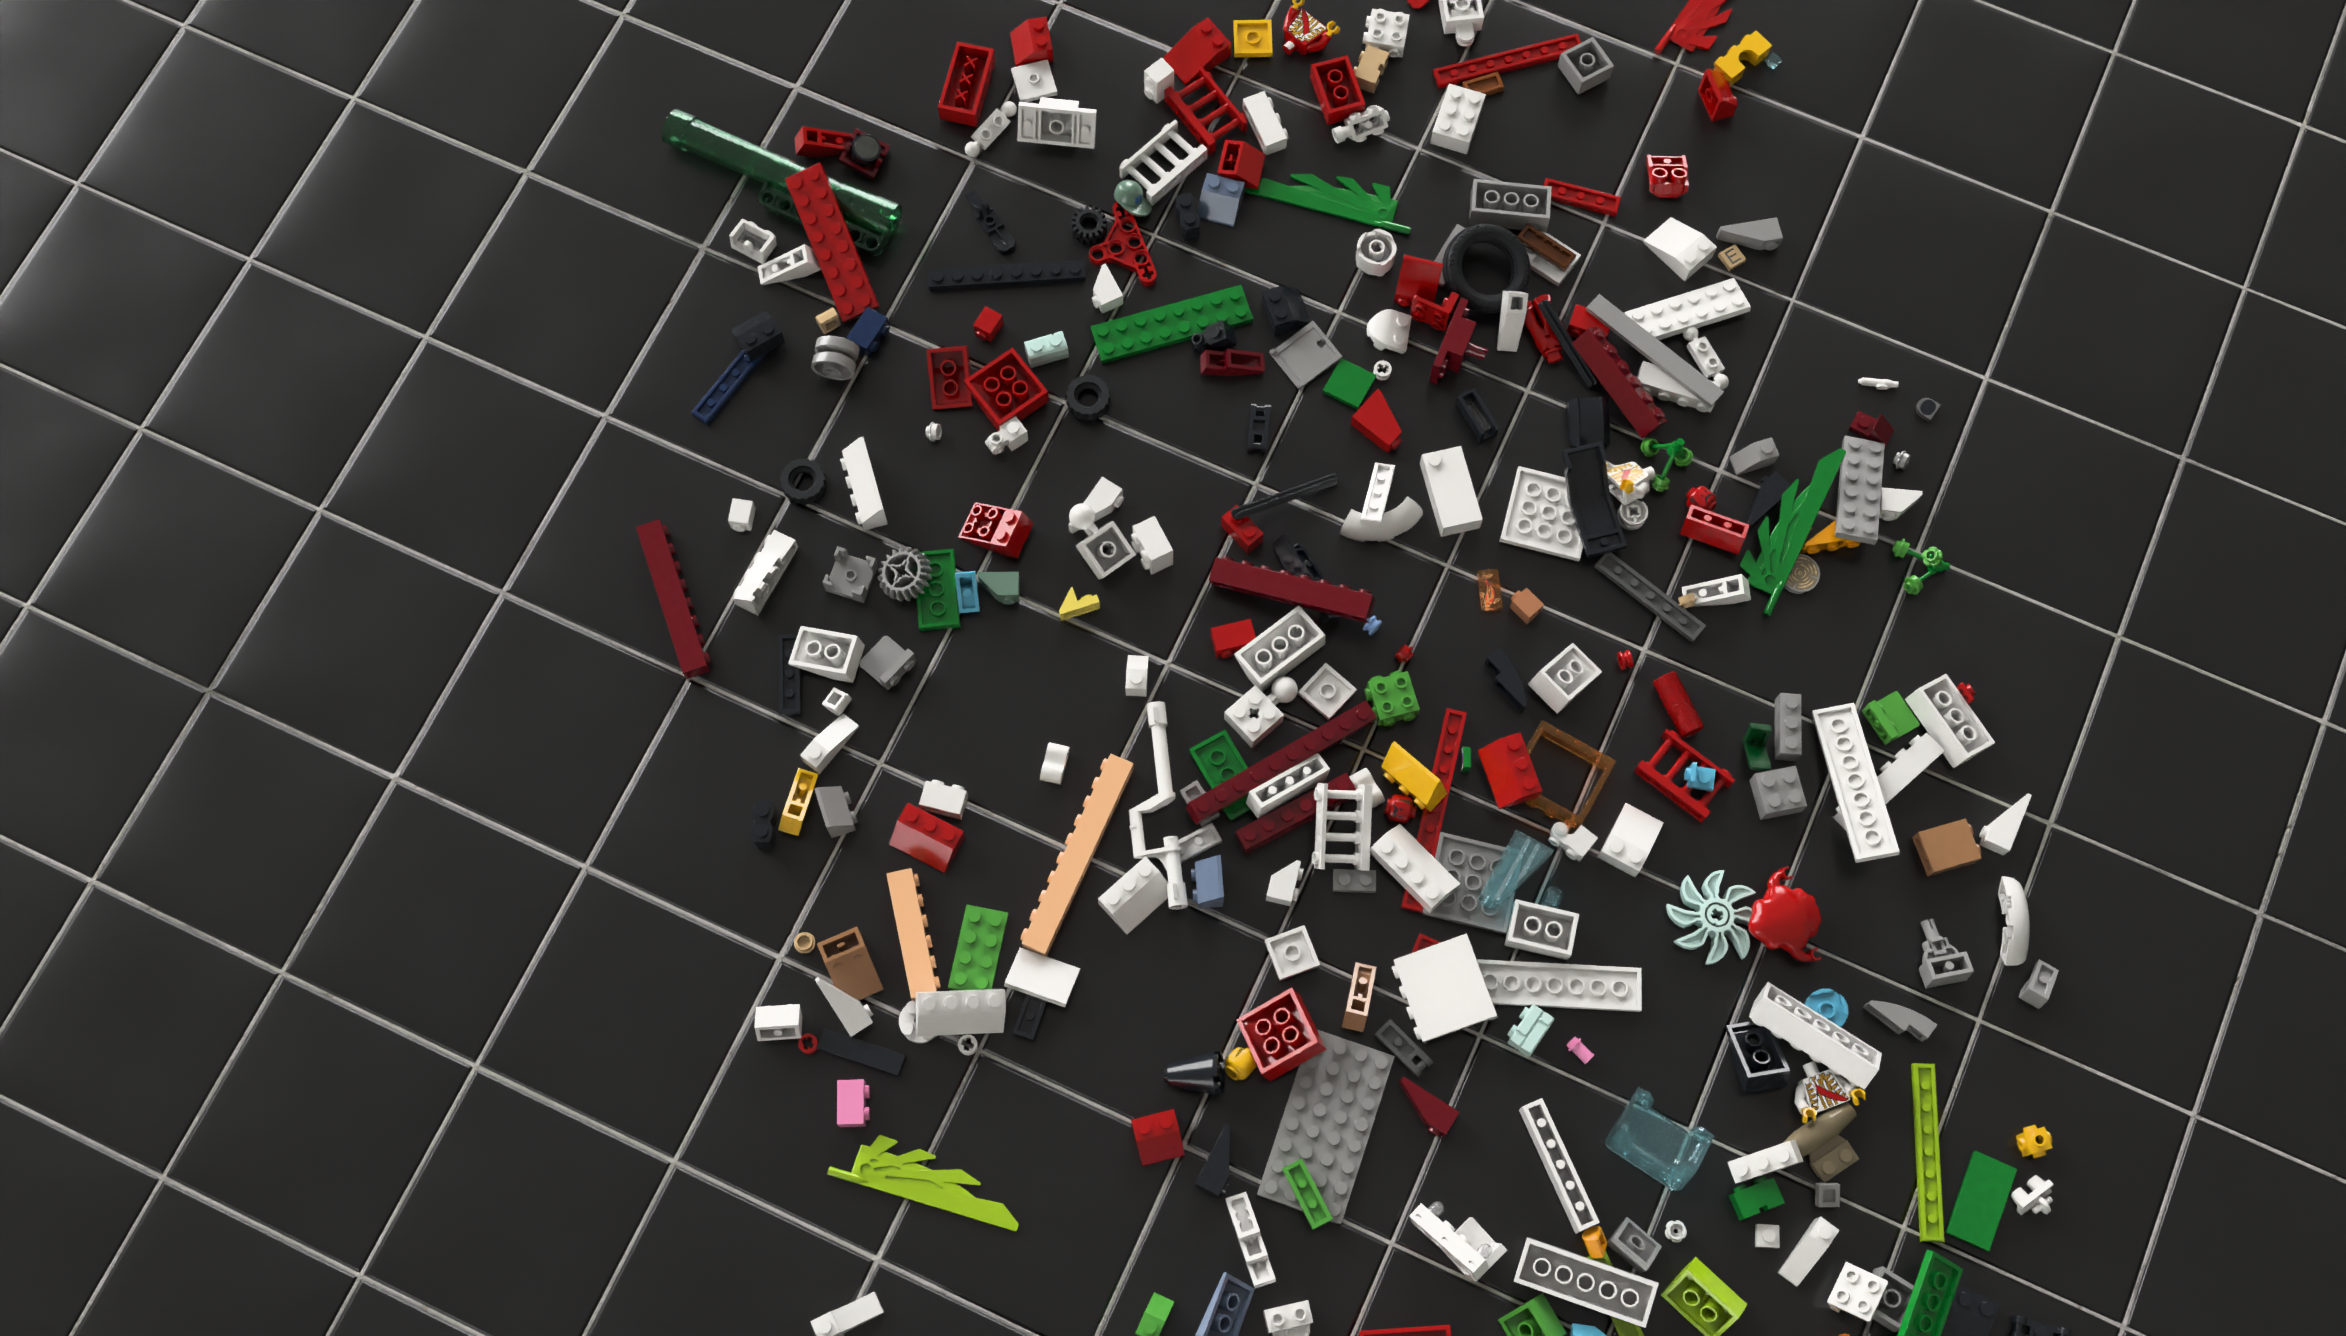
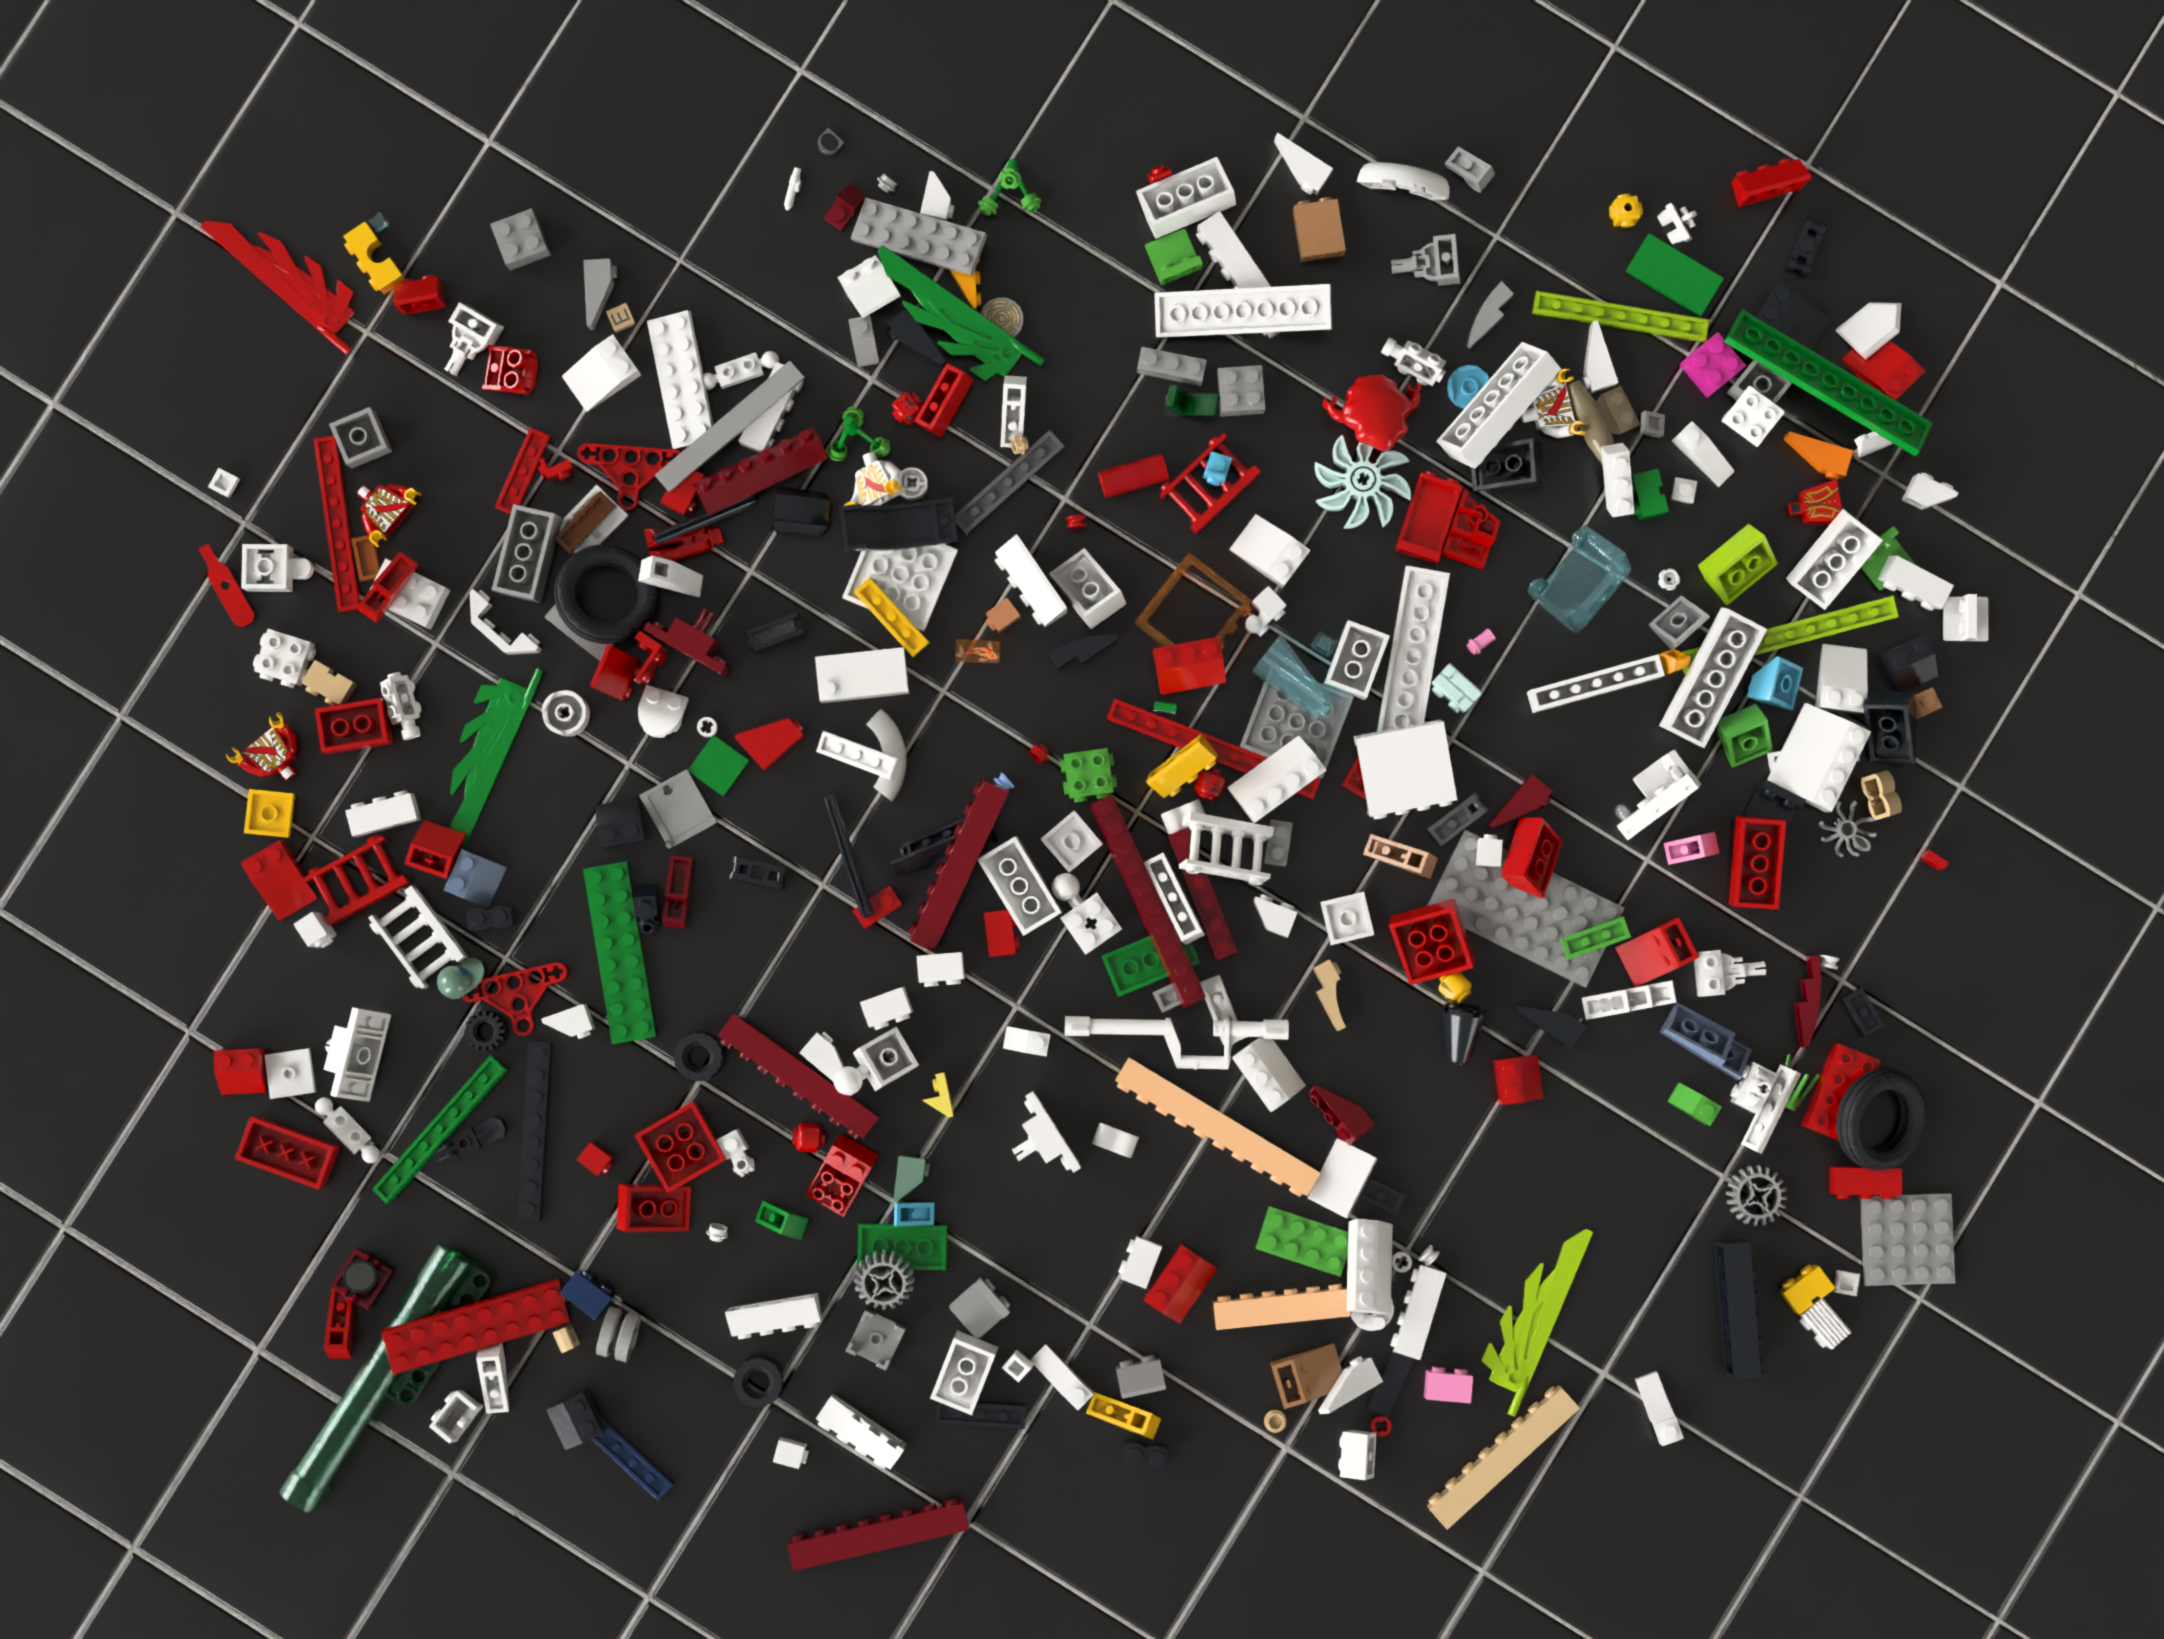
camera: 85 degrees left, 15 degrees up
(787, 1165) = (1502, 1457): none -> tan brick
(920, 1064) = (1419, 1312): none -> white brick
(949, 483) = (781, 1220): none -> green slope
(976, 1069) = (1428, 1256): none -> white bush
(1000, 201) = (440, 1129): none -> green tile
(1026, 496) = (808, 1137): none -> red head
(1046, 349) = (635, 1096): light aqua brick -> none
(1052, 697) = (1044, 1136): none -> white brick
(1081, 480) = (797, 1075): none -> dark red brick
(1100, 975) = (1344, 1115): none -> dark red slope
(1194, 587) = (940, 967): none -> white brick
(1209, 882) = (1265, 995): sand blue slope -> none
(1233, 941) = (1328, 976): none -> tan slope
(1301, 1260) = (1657, 952): none -> slope
(1377, 1077) = (1489, 851): none -> white brick
(1378, 1122) = (1532, 856): none -> red slope
(1411, 1285) = (1691, 848): none -> bright pink slope
(1454, 175) = (479, 607): none -> white slope
(1461, 94) = (387, 587): none -> red slope
(1507, 508) = (891, 617): none -> yellow tile
(1527, 92) = (385, 509): none -> torso
(1562, 625) = (1031, 582): none -> white slope
(1586, 221) = (560, 471): none -> red bracket
(1599, 272) = (620, 467): none -> red beam
(1684, 1028) = (1470, 533): none -> red slope
(1691, 140) = (470, 335): none -> white brick
(1692, 985) = (1428, 517): none -> red panel
(1783, 168) = (520, 239): none -> light grey brick
(1804, 450) = (868, 286): none -> white slope
(1840, 952) = (1416, 361): none -> white brick
(1875, 1131) = (1598, 368): none -> white slope
(1899, 1247) = (1712, 365): none -> dark pink brick
(2097, 1286) = (1770, 181): none -> red slope

